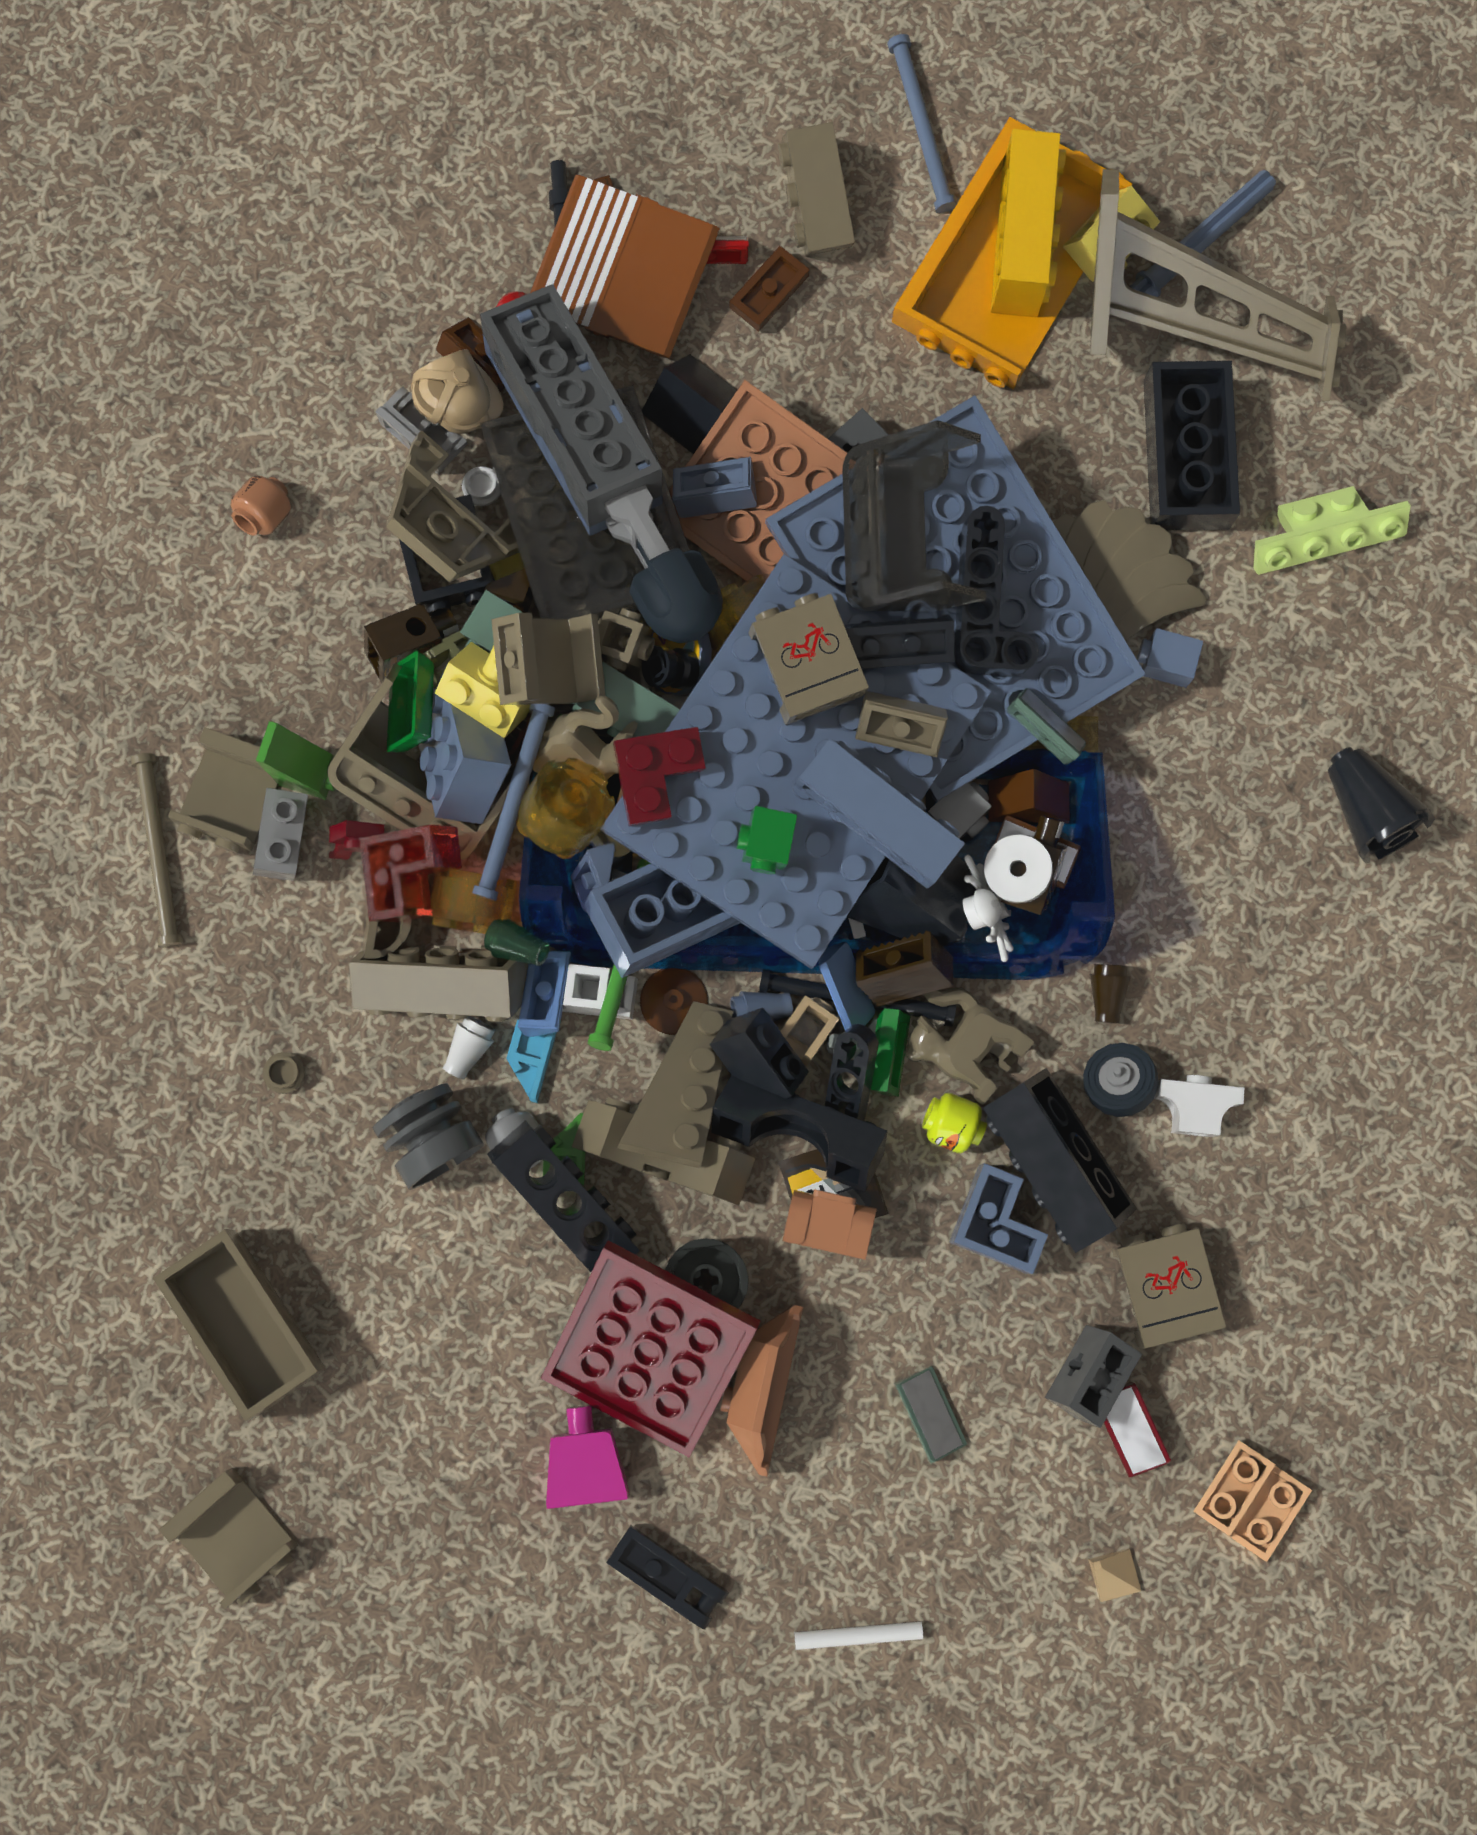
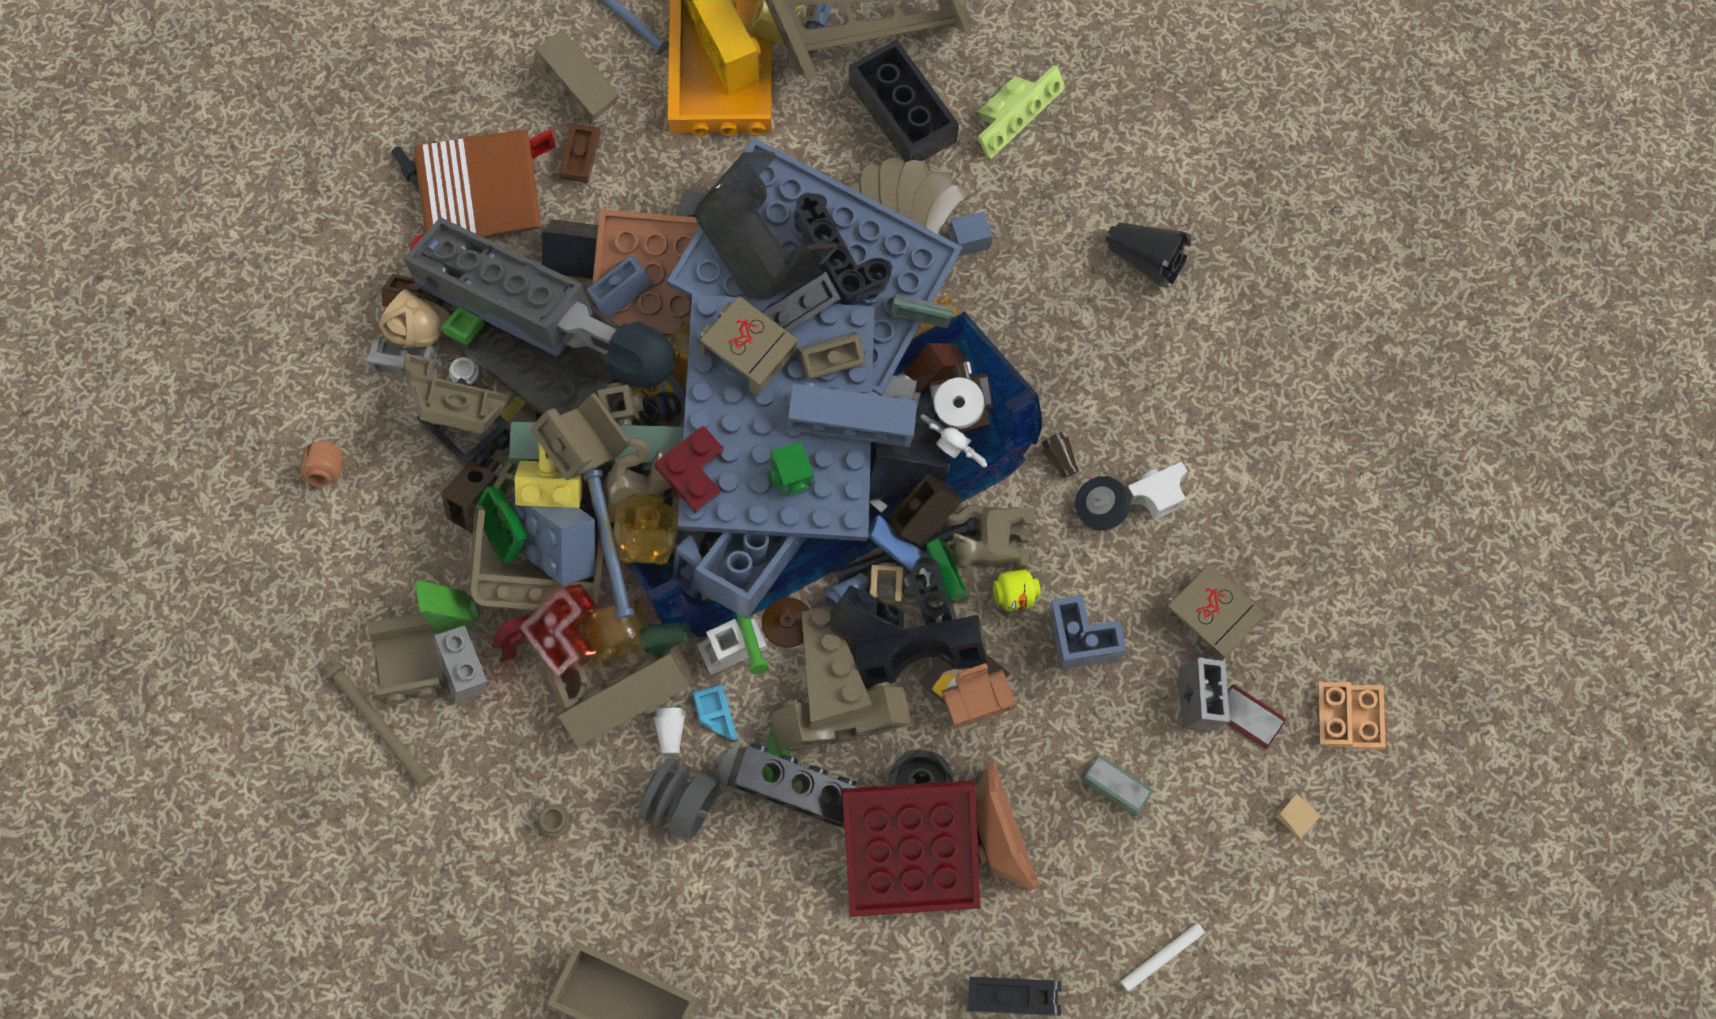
camera: 30 degrees left, 10 degrees down
(507, 432) = (462, 325): none -> bright green tile
(544, 995) = (701, 663): medium blue slope -> none
(584, 1464) = (914, 954): dark pink torso -> none
(1060, 1161) = (1096, 571): black brick -> none

